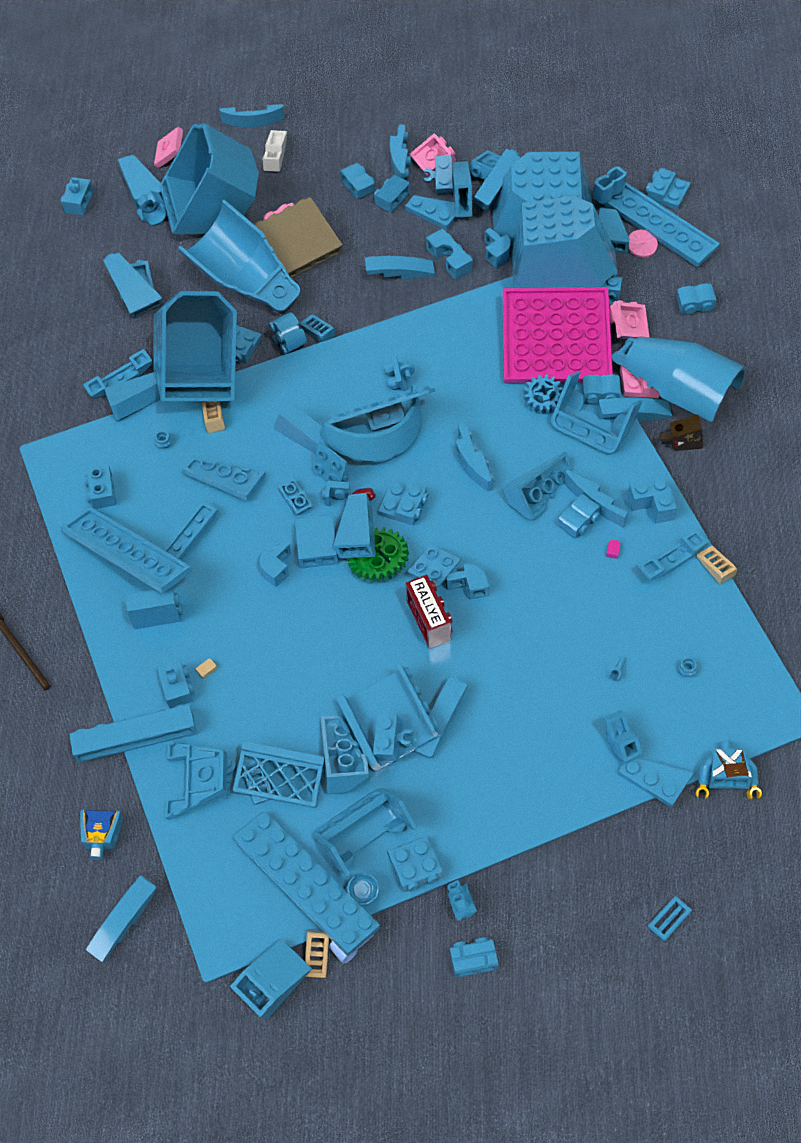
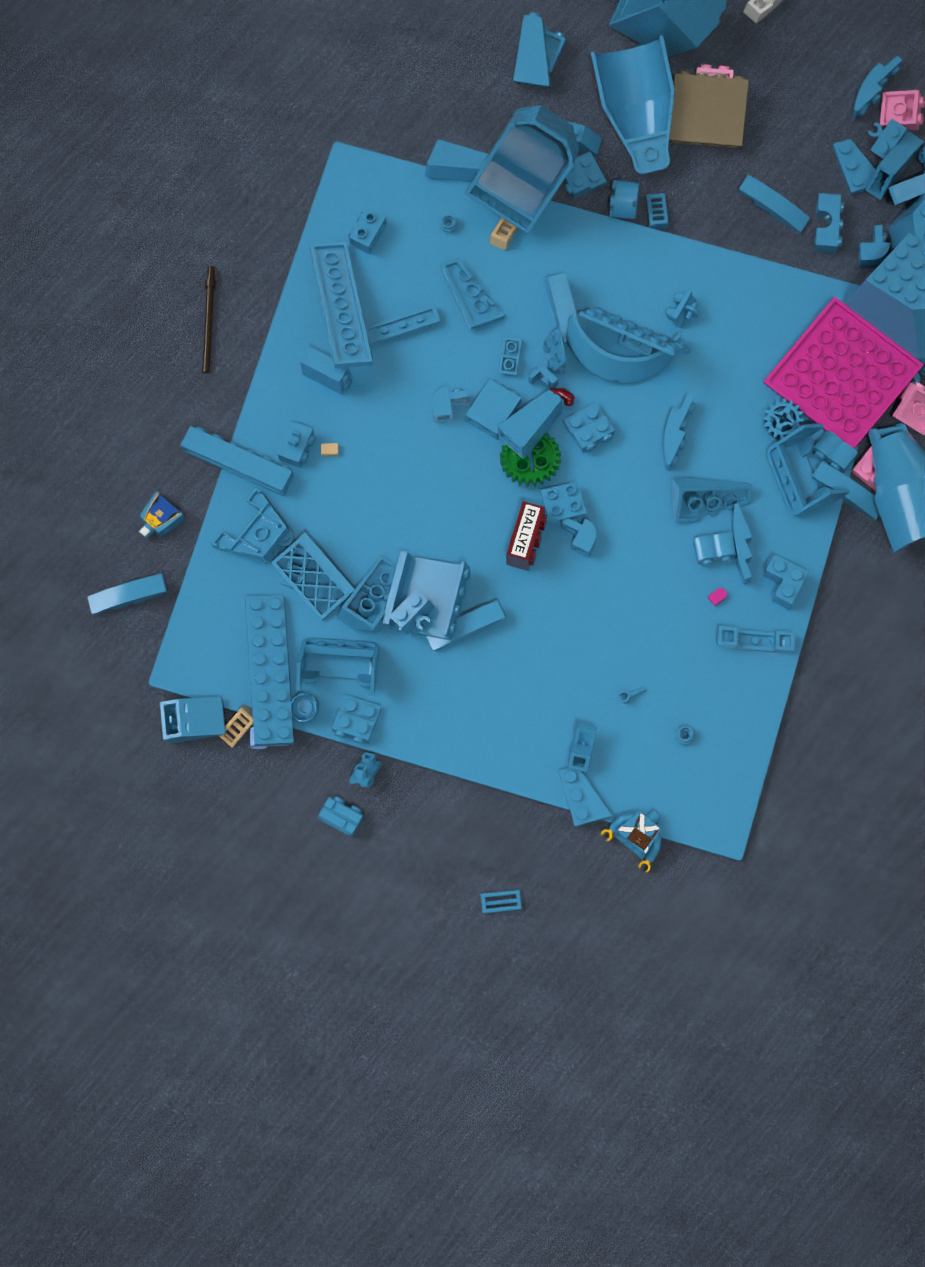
camera: 40 degrees right, 15 degrees up
(139, 364) = (460, 135): dark azure slope -> none
(357, 180) = (813, 86): dark azure brick -> none
(392, 193) = (832, 122): dark azure brick -> none
(684, 434) = (865, 545): dark brown torso -> none
(721, 577) = (787, 688): tan slope -> none

